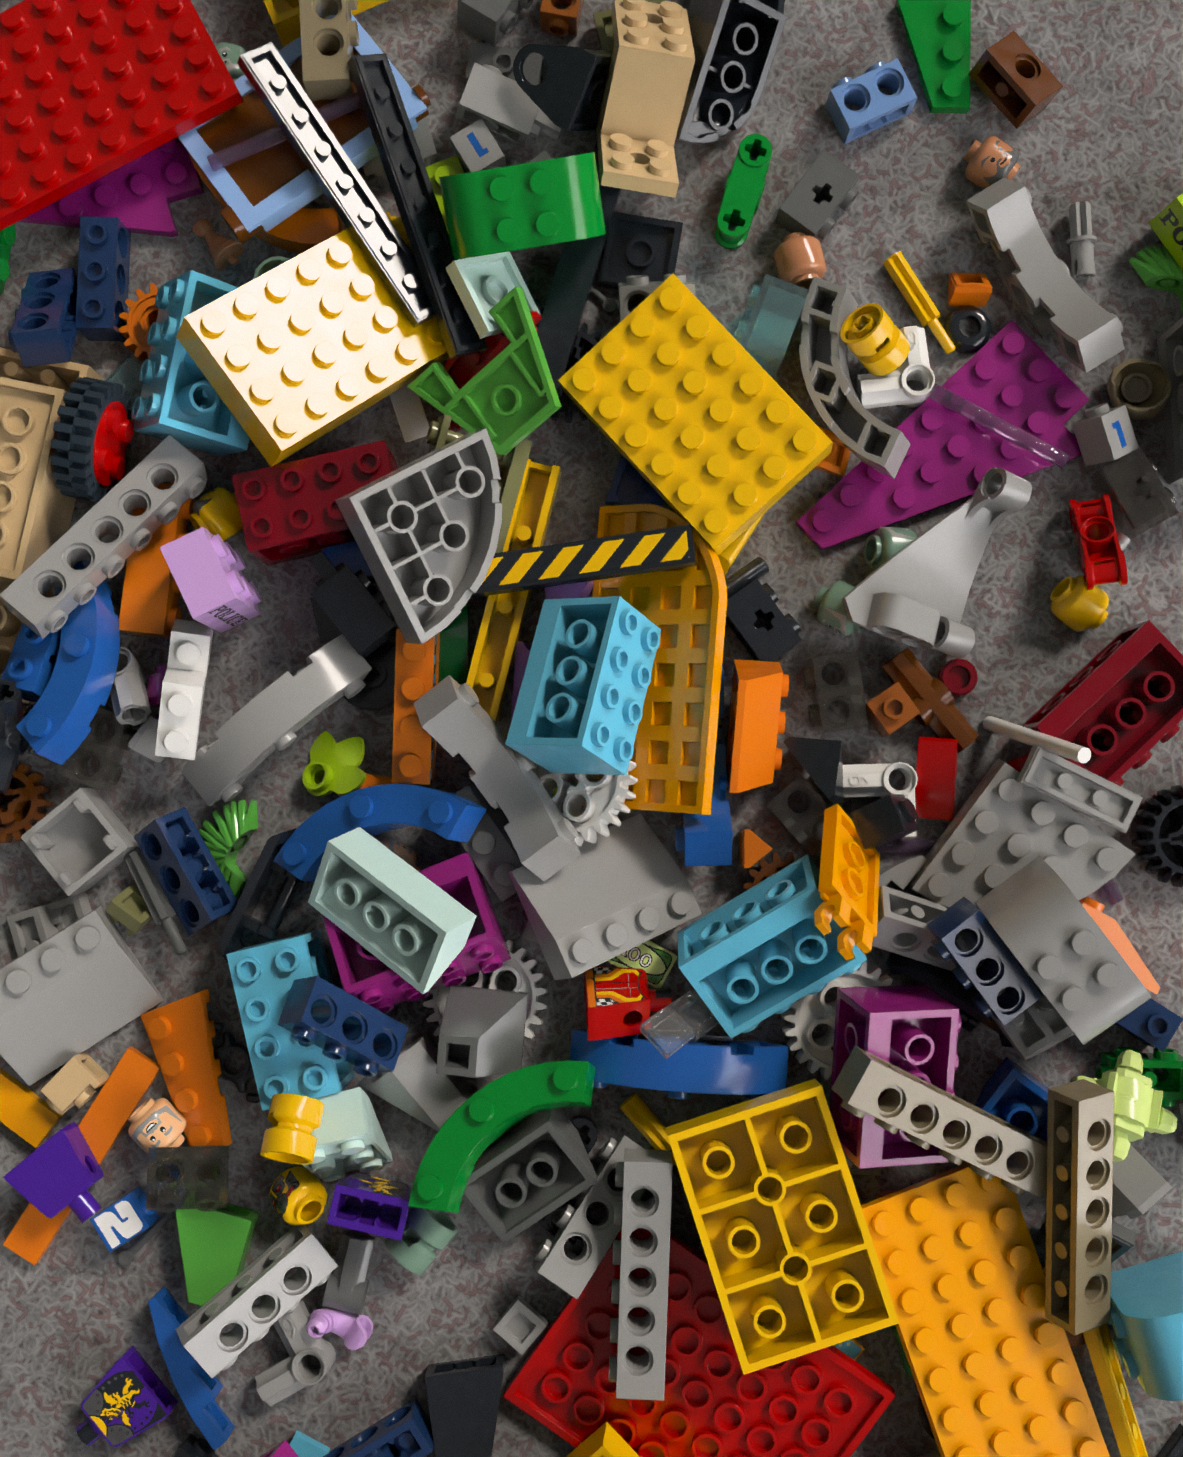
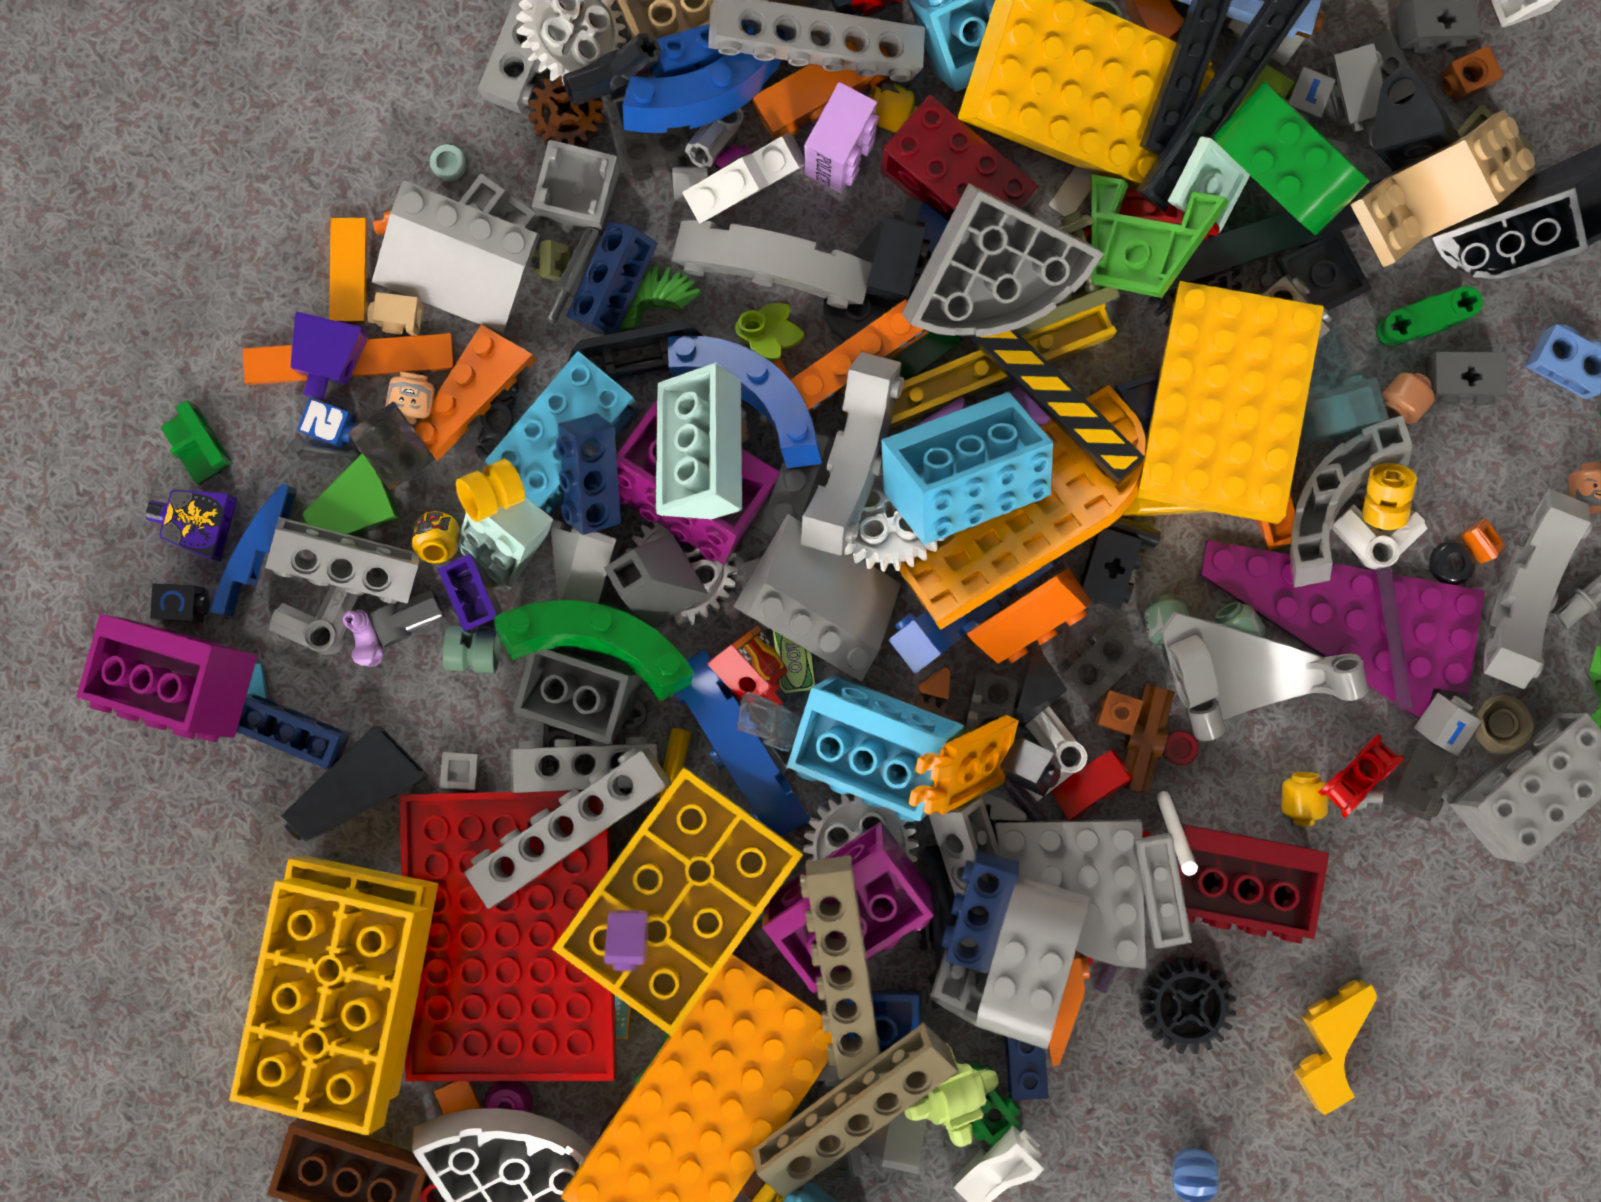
camera: 50 degrees right, 0 degrees up
(55, 1348) = (195, 443): none -> green panel
(786, 1306) = (626, 939): none -> medium lavender slope
(917, 298) = (1447, 508): yellow axle -> none

